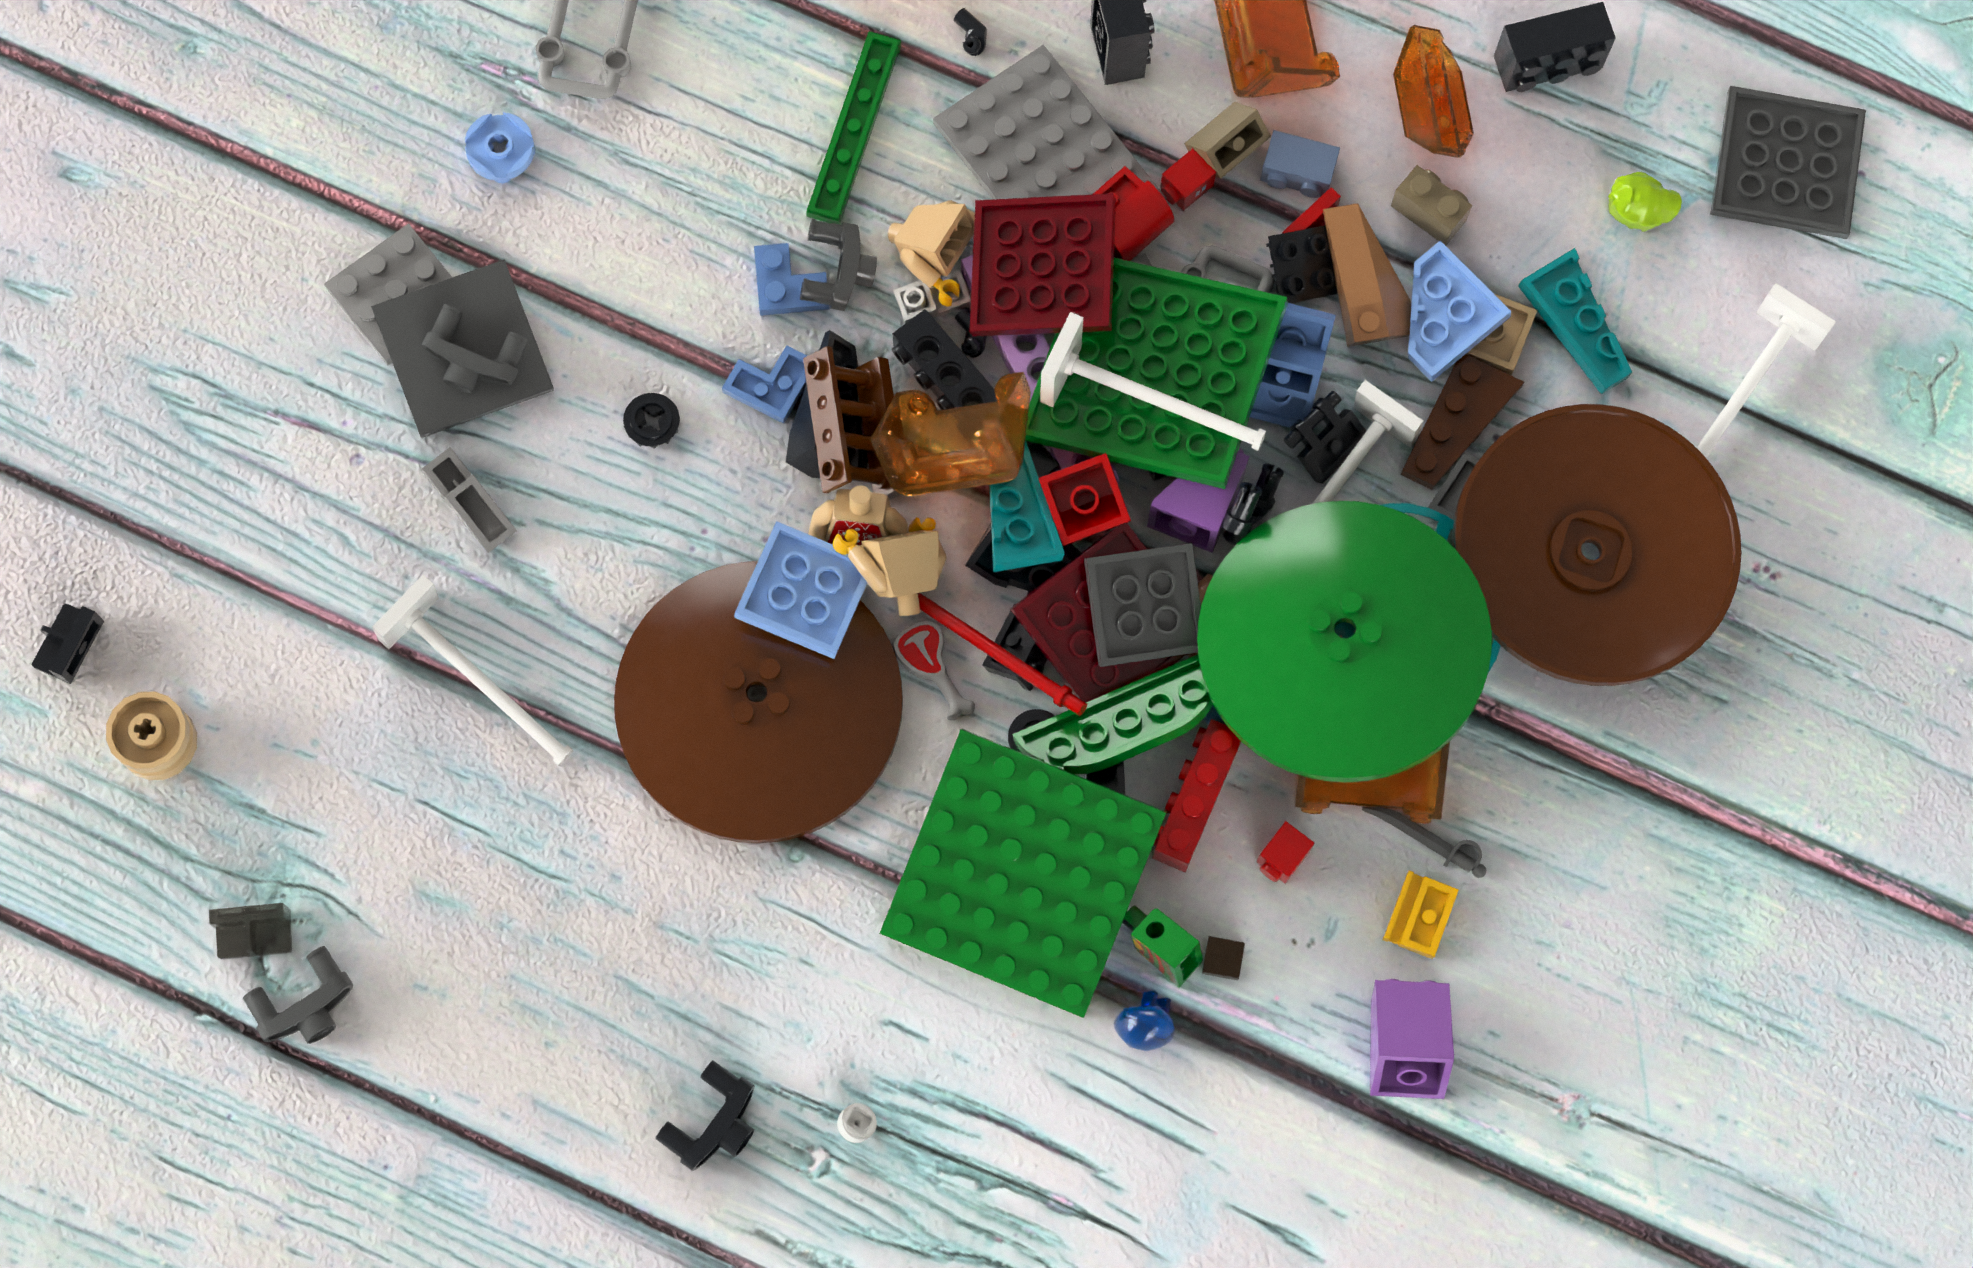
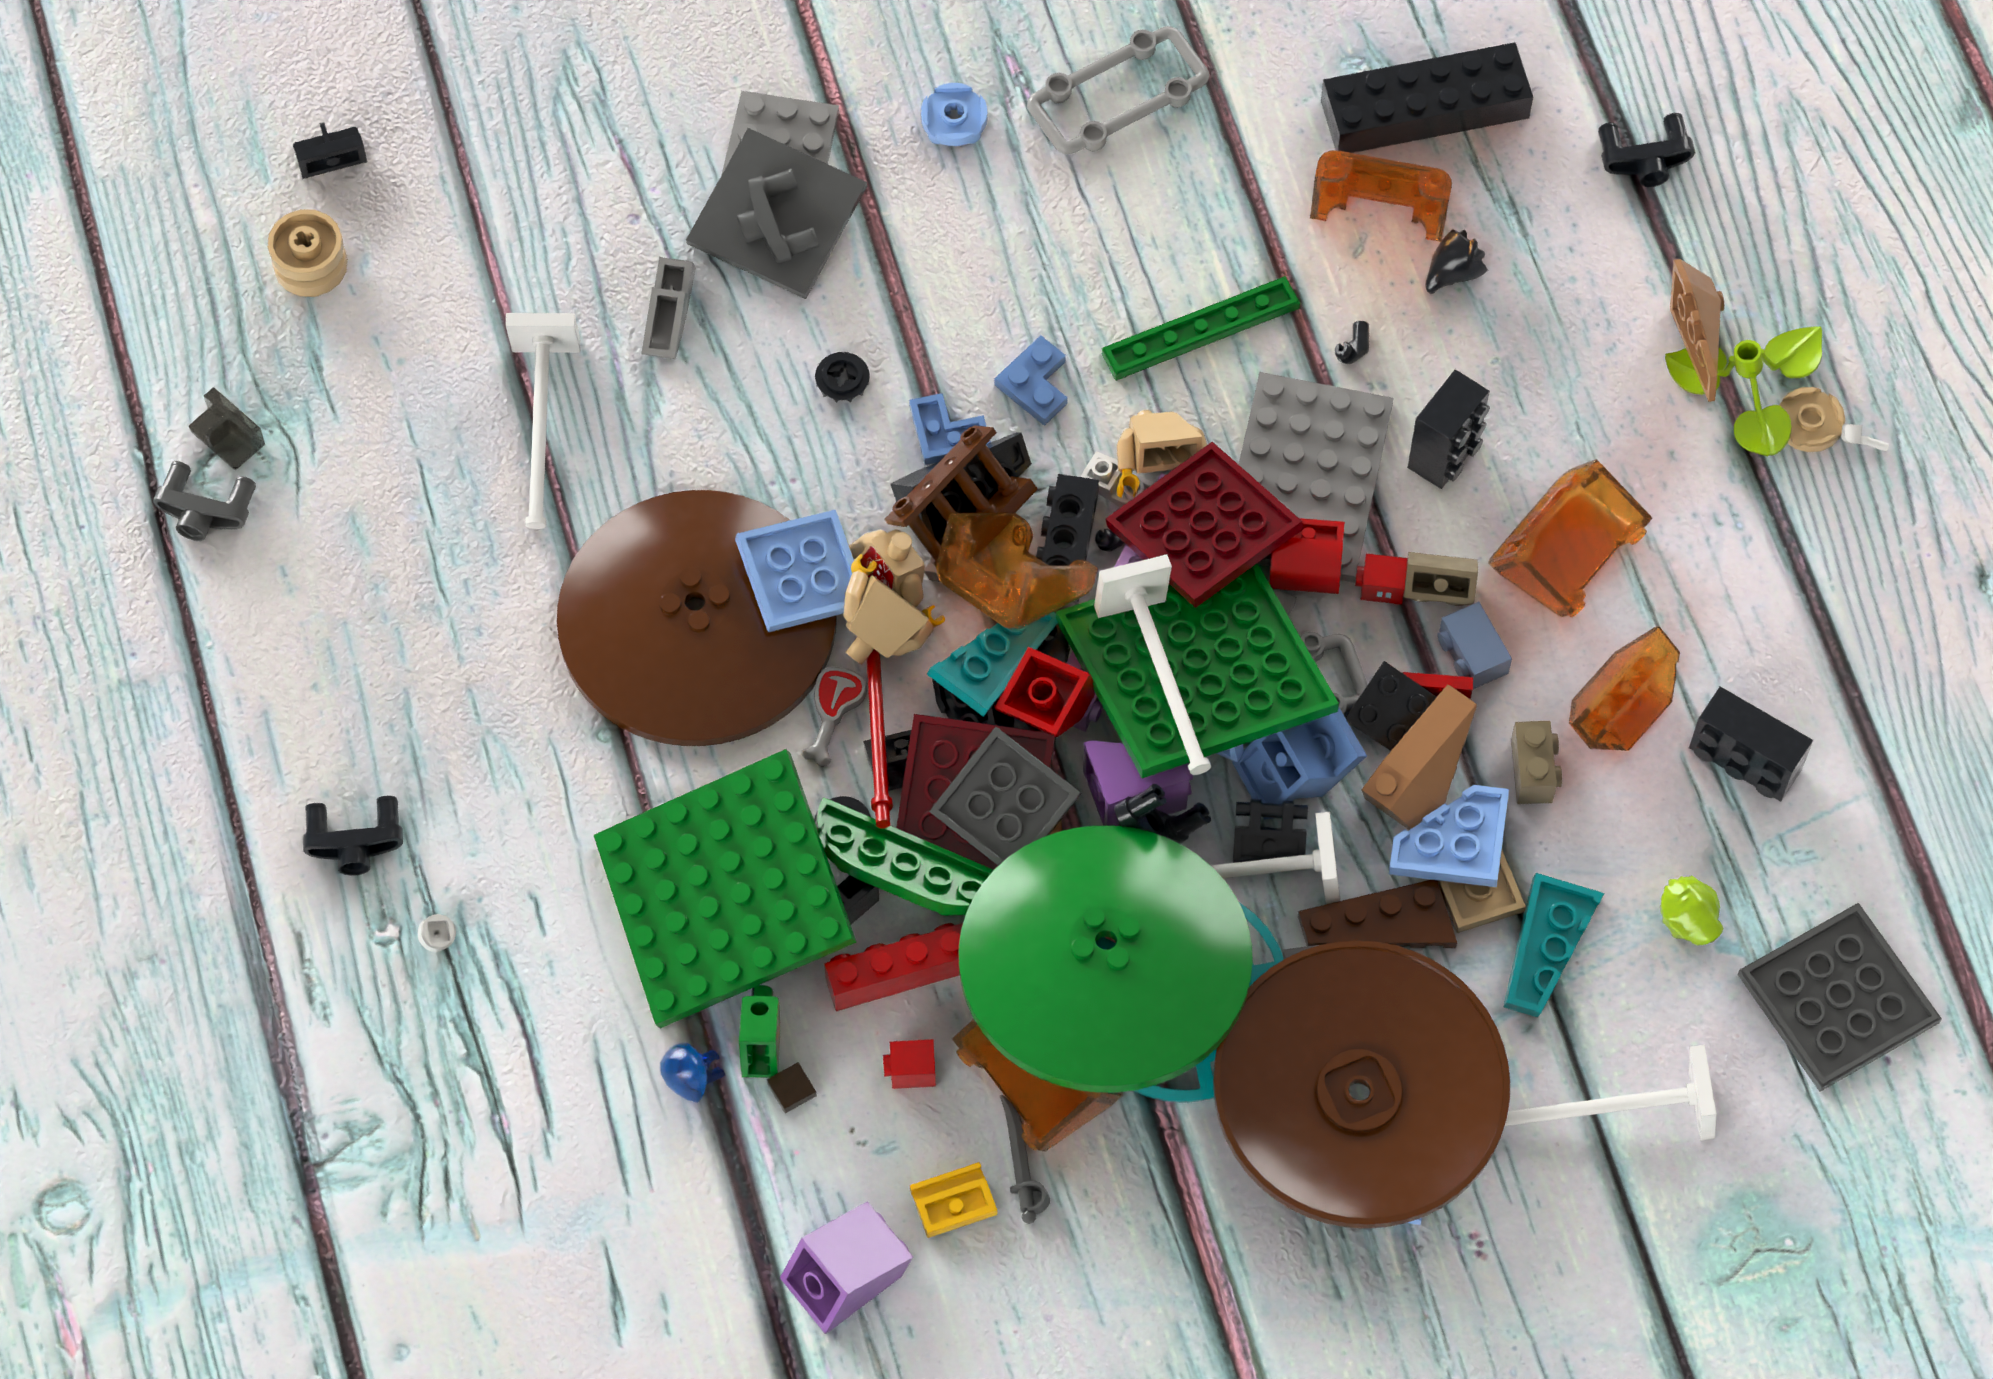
camera: 50 degrees right, 10 degrees down
(852, 267) = (1083, 411): dark grey connector -> none

